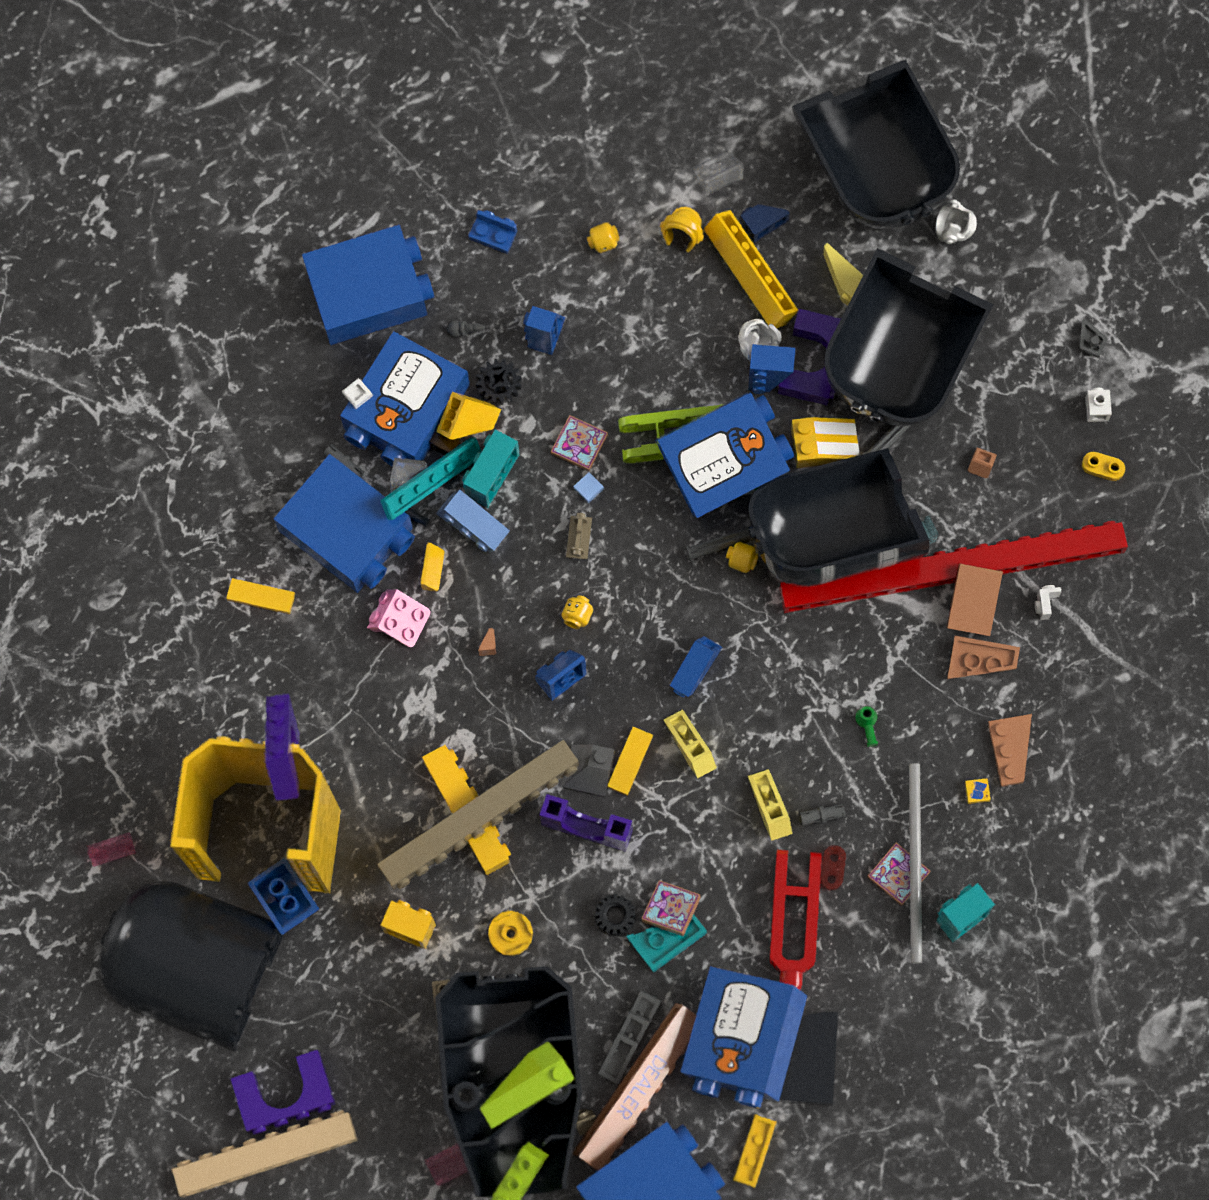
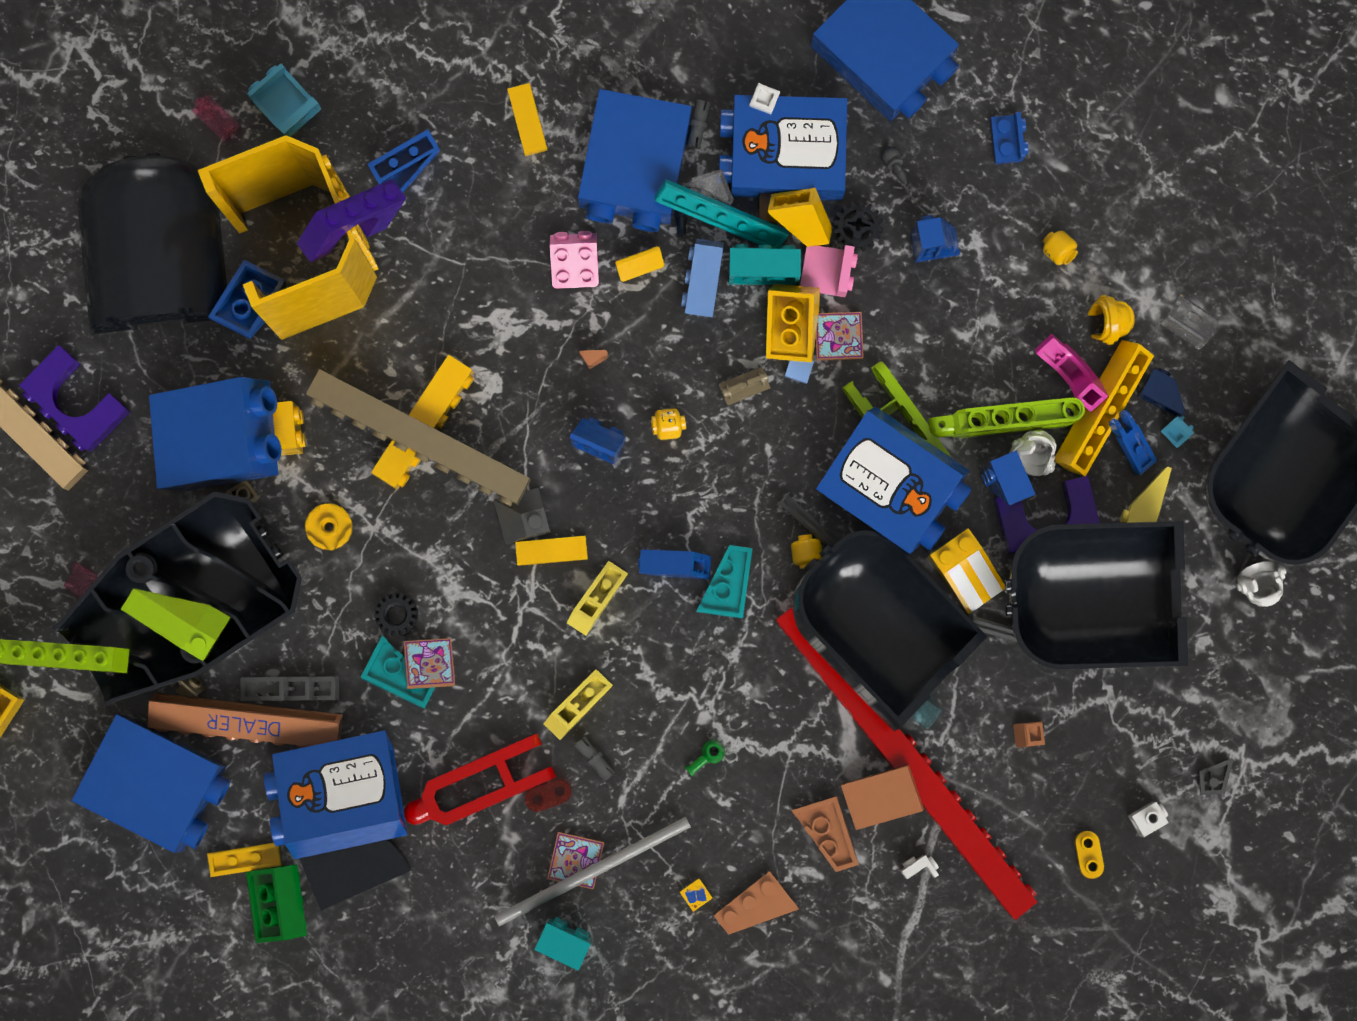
camera: 55 degrees right, 10 degrees up
(130, 785) = (283, 100): none -> medium azure panel
(242, 711) = (405, 161): none -> blue wedge
(383, 979) = (214, 434): none -> blue brick
(523, 420) = (829, 269): none -> bright pink bracket
(549, 472) = (792, 322): none -> yellow slope
(560, 817) = (462, 527): dark purple arch -> none
(710, 276) = (1074, 371): none -> dark pink arch
(720, 344) = (1039, 416): none -> lime piece
(735, 632) = (729, 585): none -> teal wing
(790, 261) = (1133, 443): none -> blue hinge
(799, 225) = (1177, 431): none -> medium azure tile
(807, 1142) = (276, 904): none -> green slope

